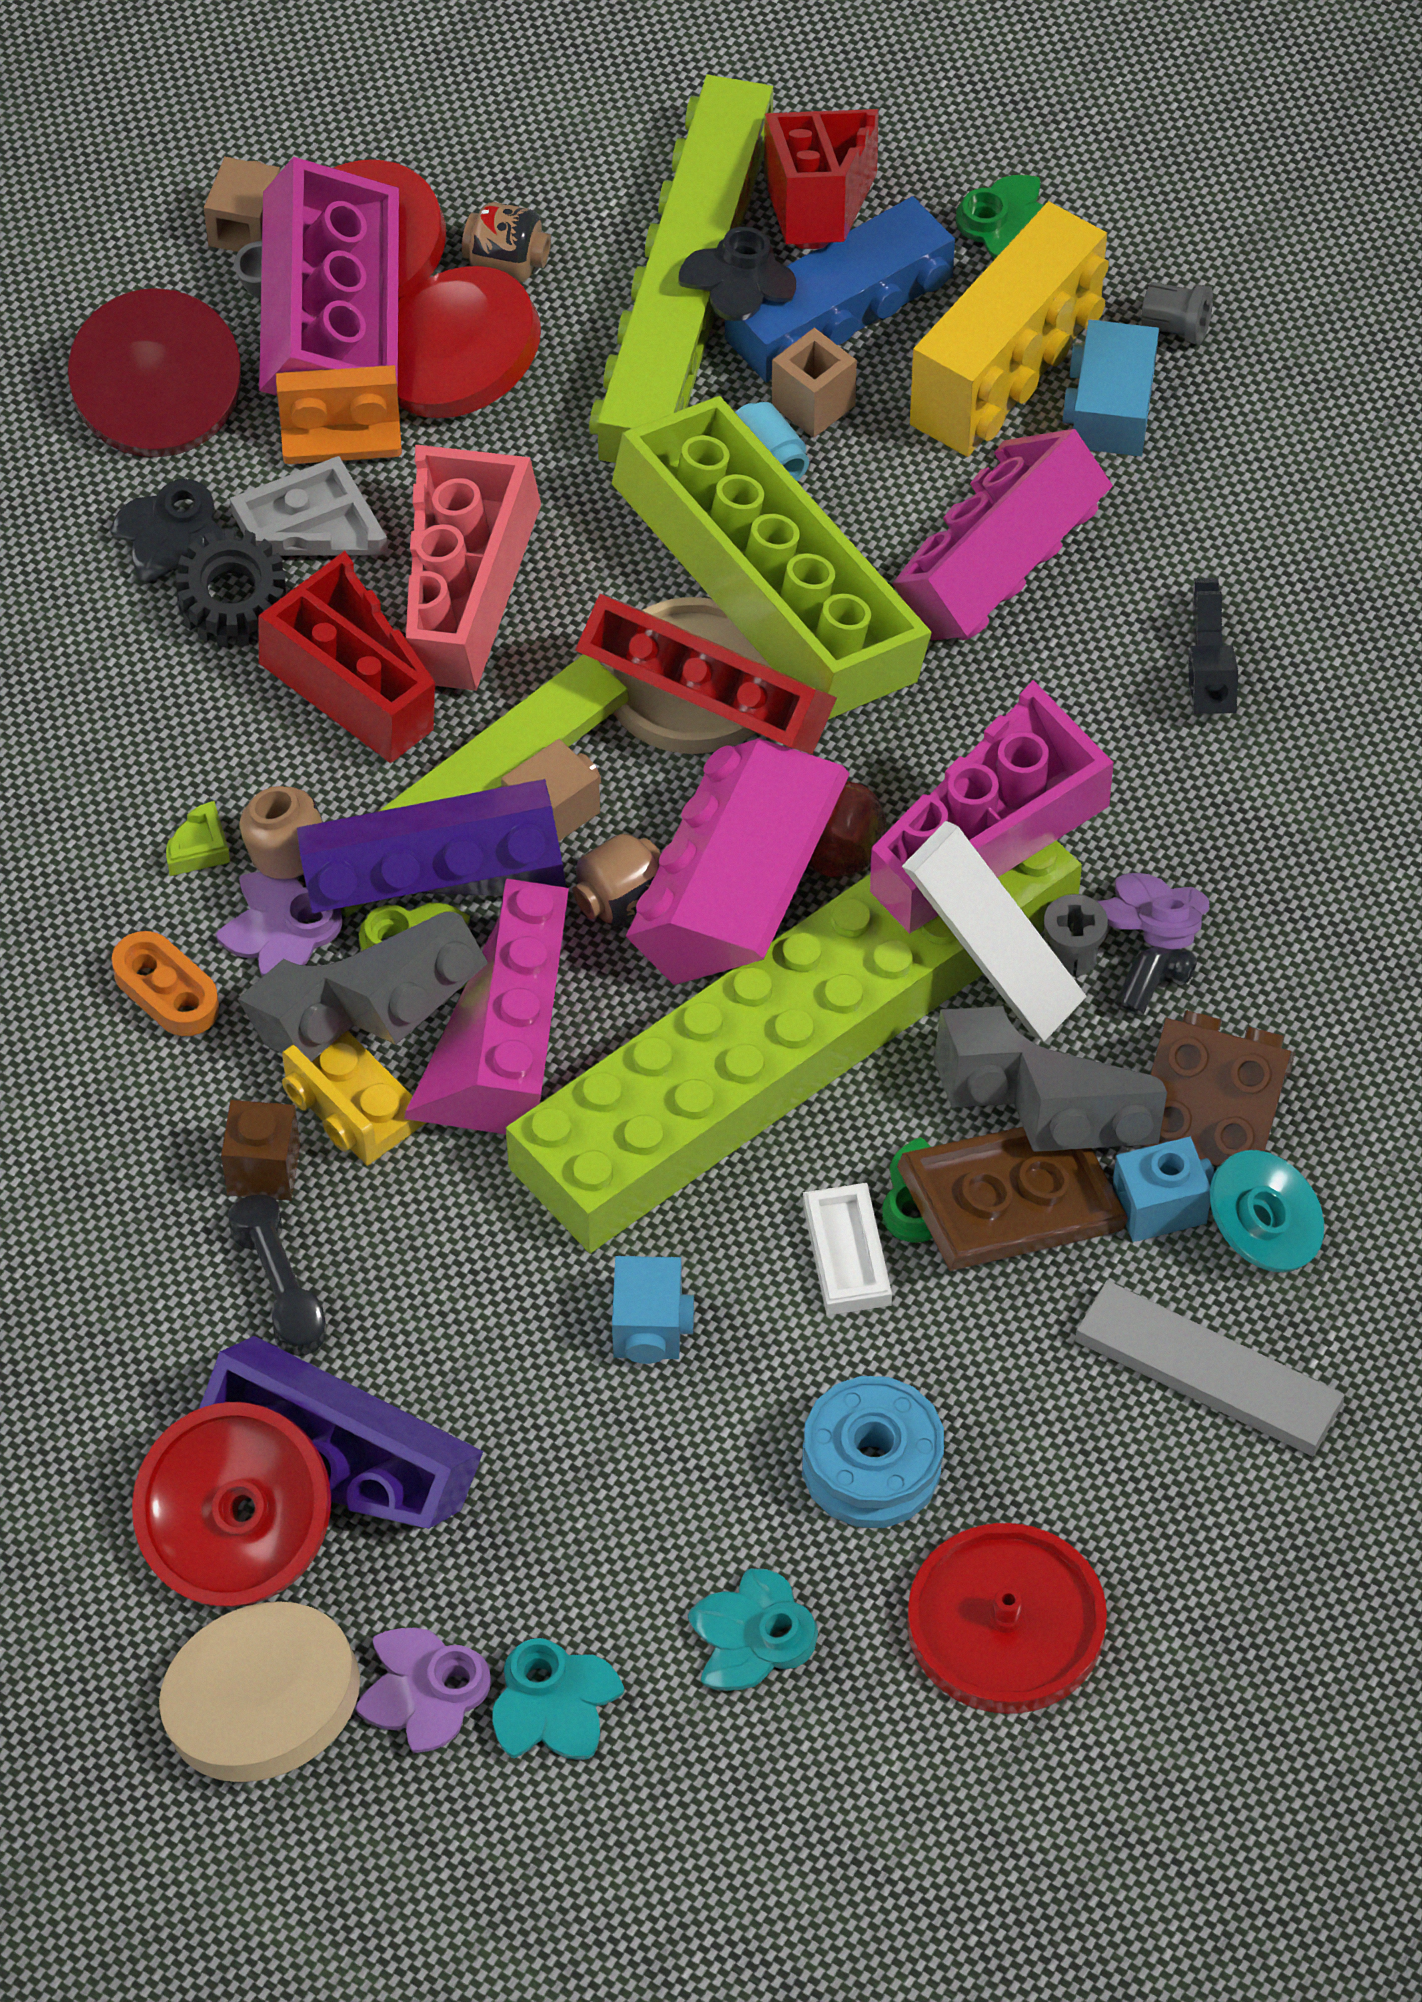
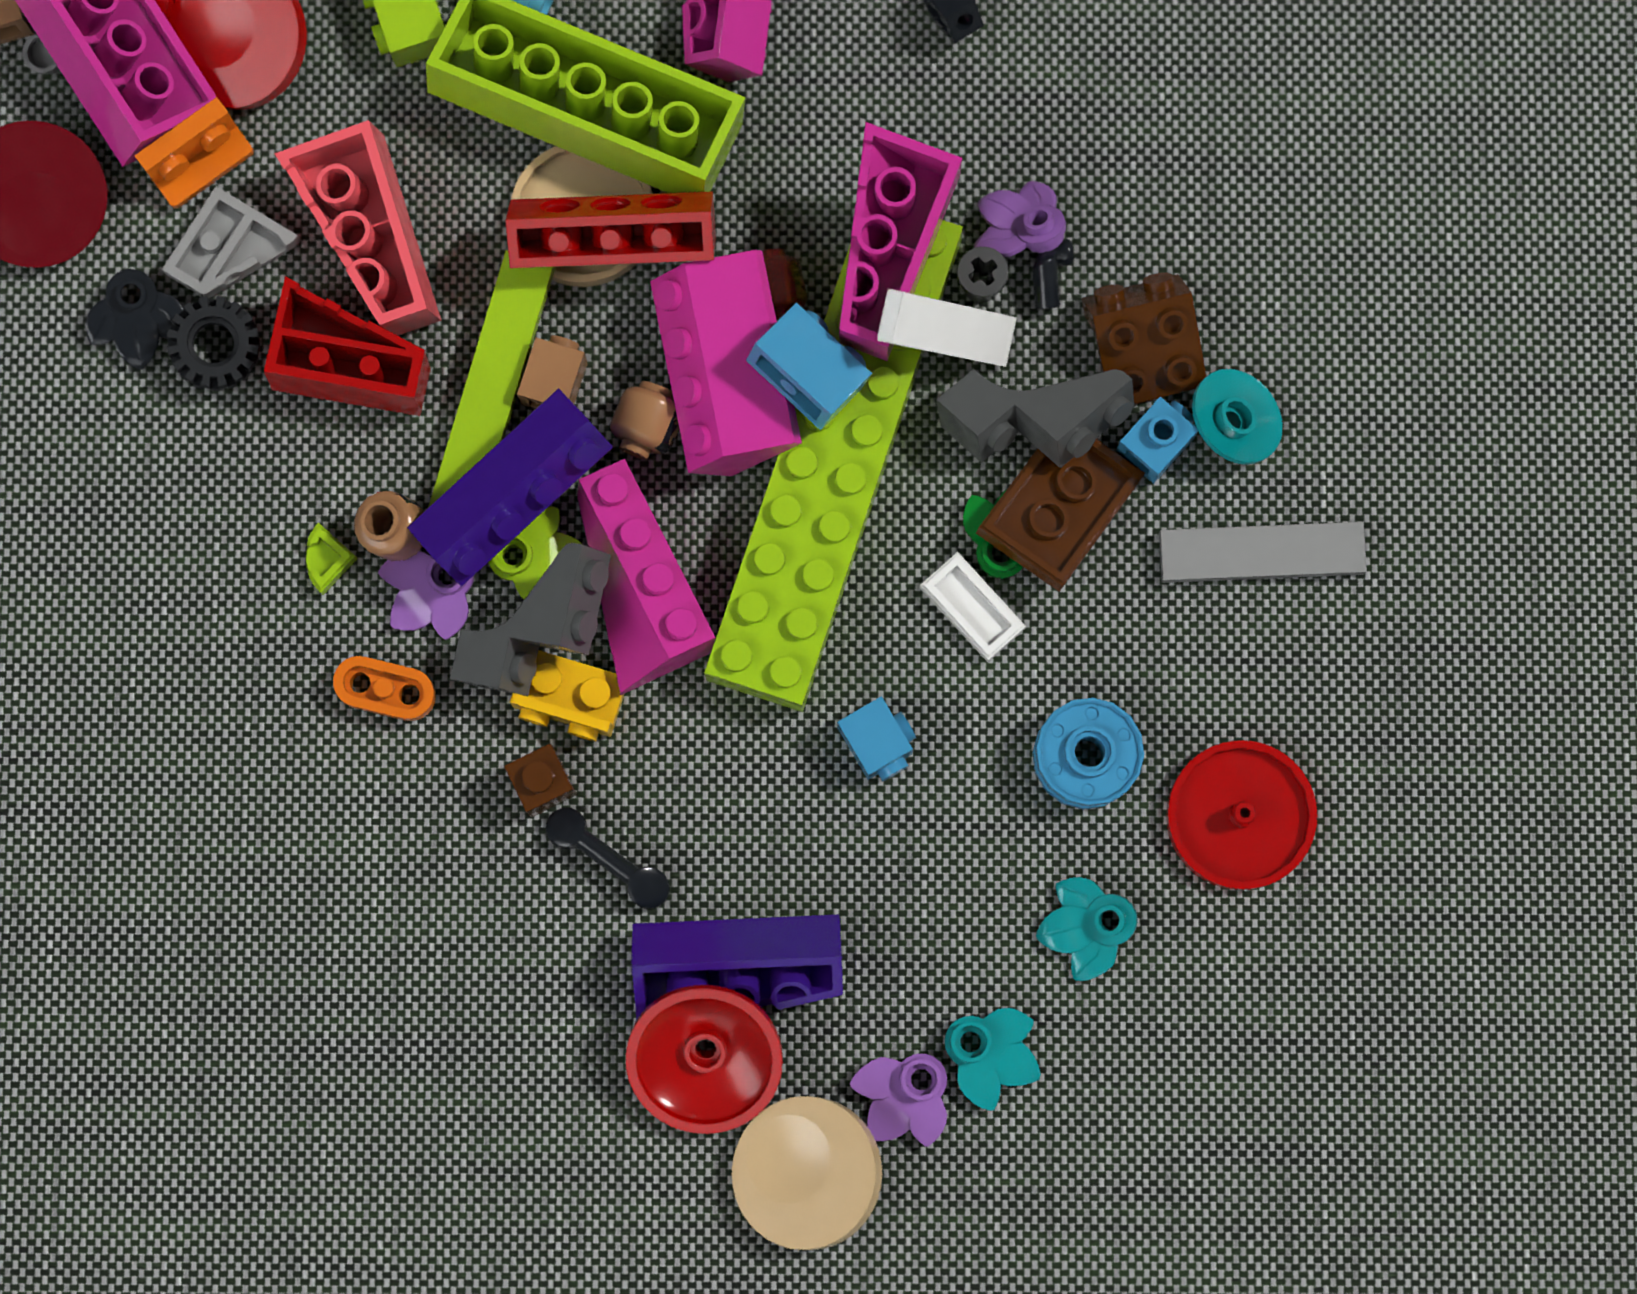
camera: 30 degrees left, 25 degrees up
(820, 882) = (809, 365): none -> dark azure brick

